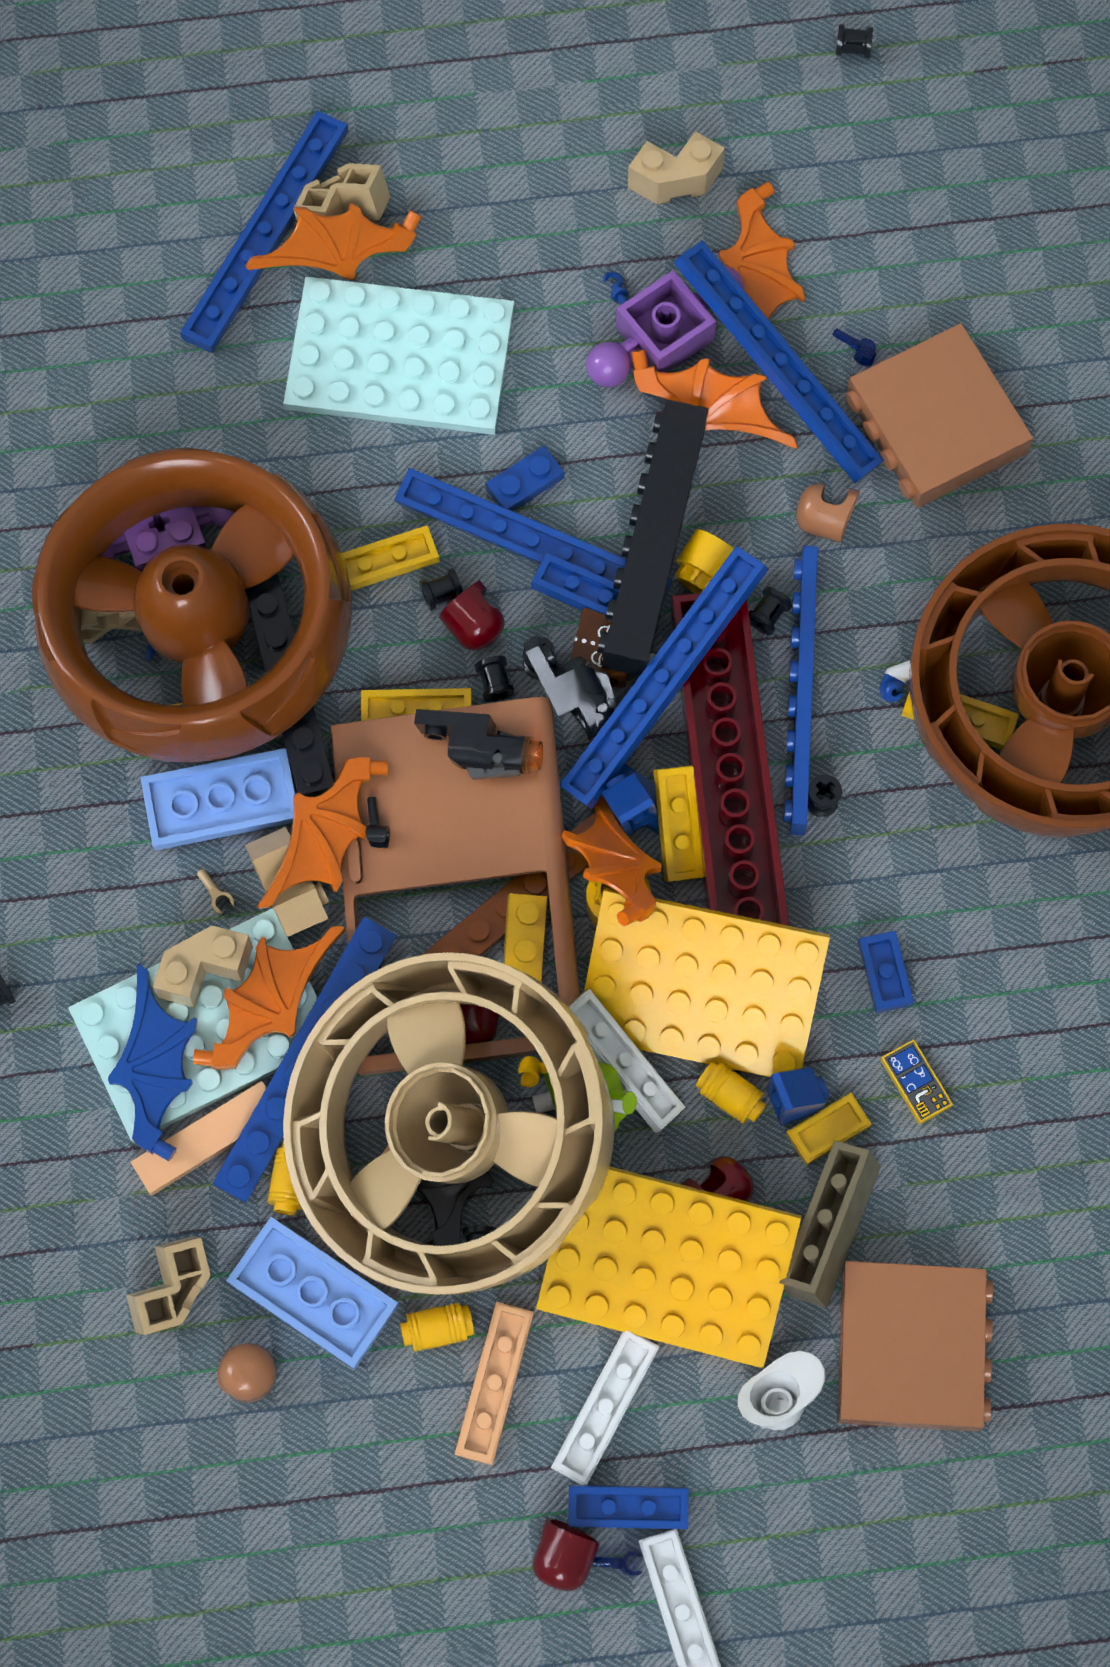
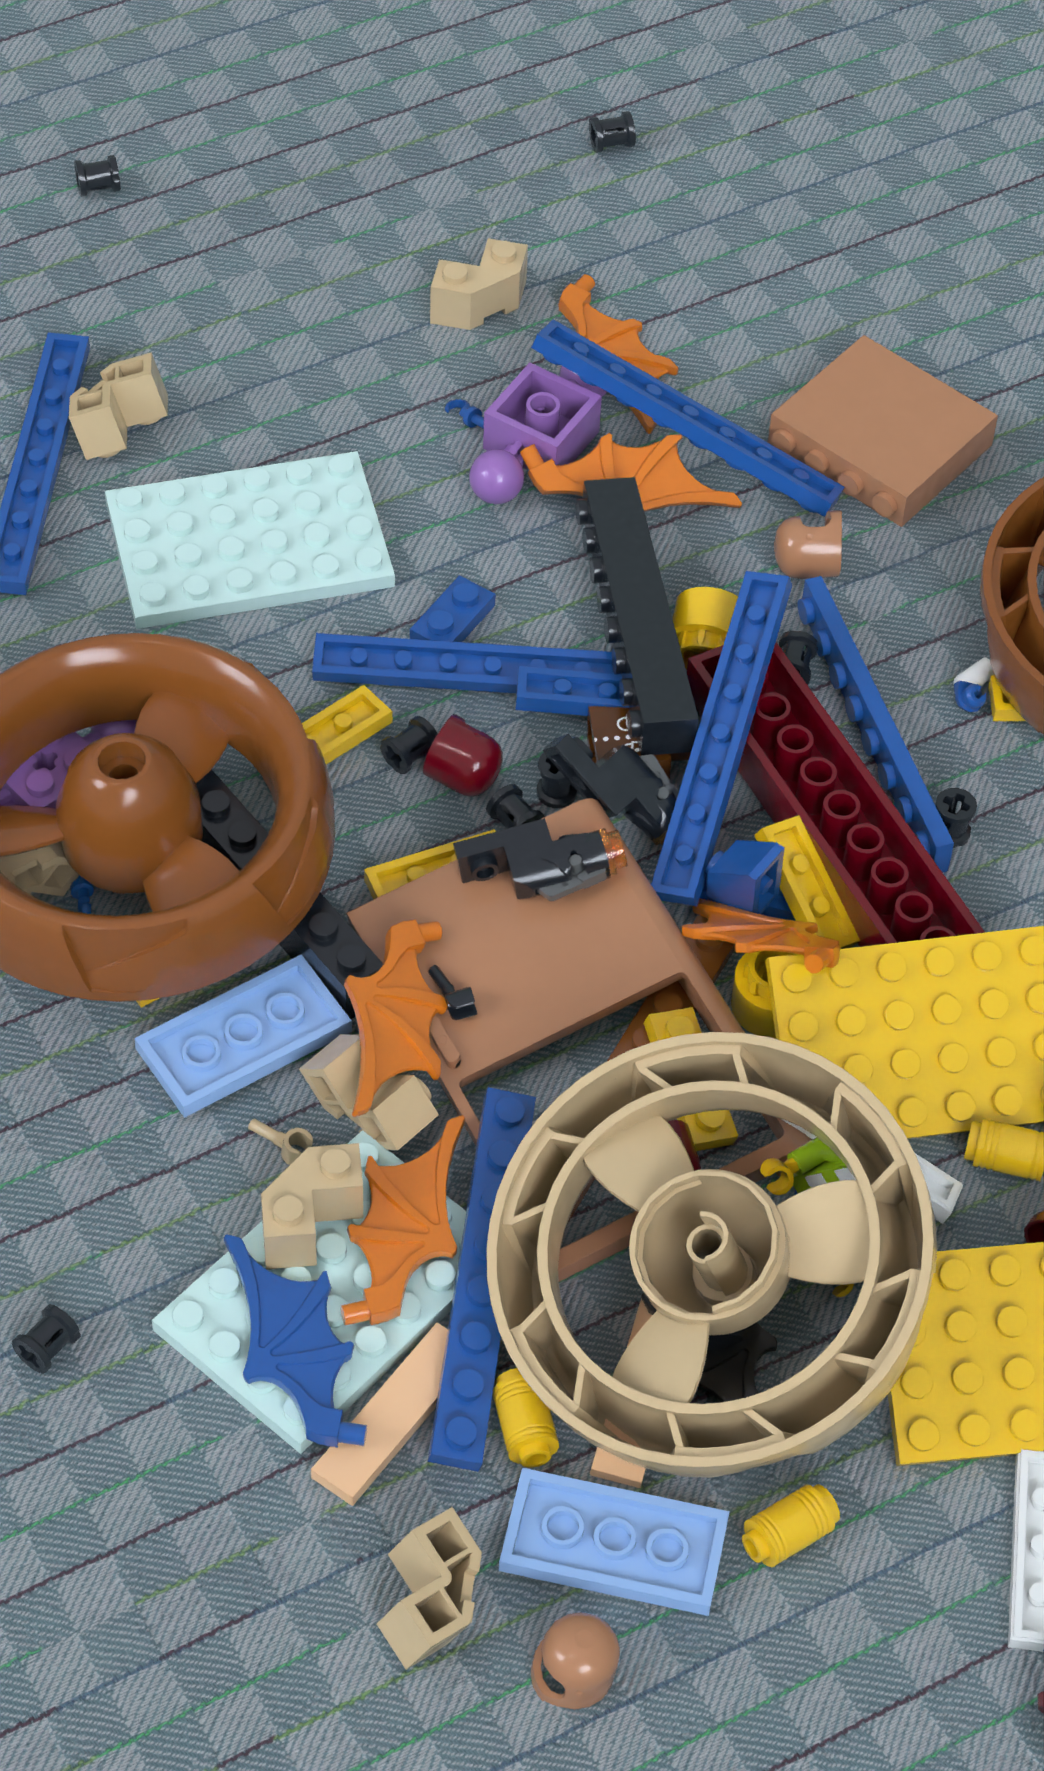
camera: 25 degrees left, 20 degrees down
(337, 241) = (132, 439): orange animal -> none
(494, 1383) = (890, 1572): light nougat tile -> none
(865, 348) = (768, 394): clear blue hand -> none

